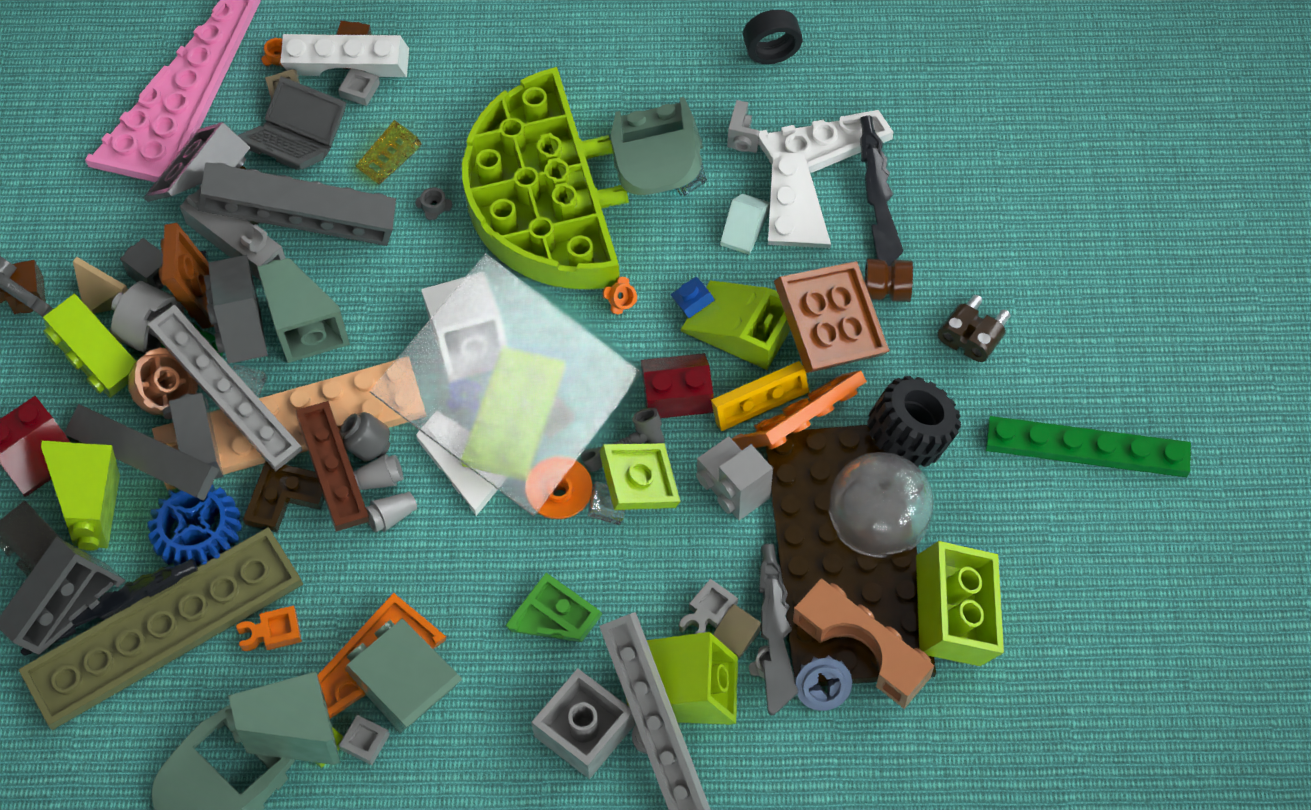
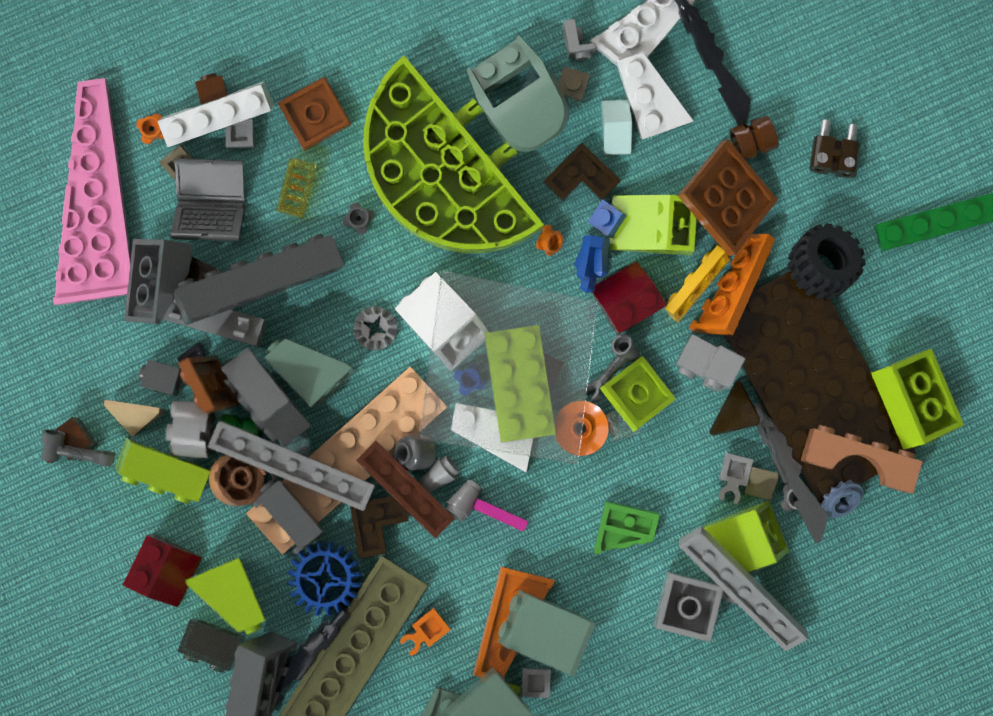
camera: 25 degrees left, 25 degrees up
(143, 452) = (256, 545): dark grey tile -> none
(389, 320) = (379, 340): none -> light grey gear
(423, 540) = (500, 514): none -> dark pink tile
(442, 97) = (314, 113): none -> dark orange plate
(657, 329) = (592, 261): none -> blue rock
(687, 242) = (583, 168): none -> dark brown plate
(721, 168) = (573, 83): none -> dark tan plate
(744, 541) = (736, 412): none -> dark brown piece
(880, 519) = (811, 345): clear cylinder -> none

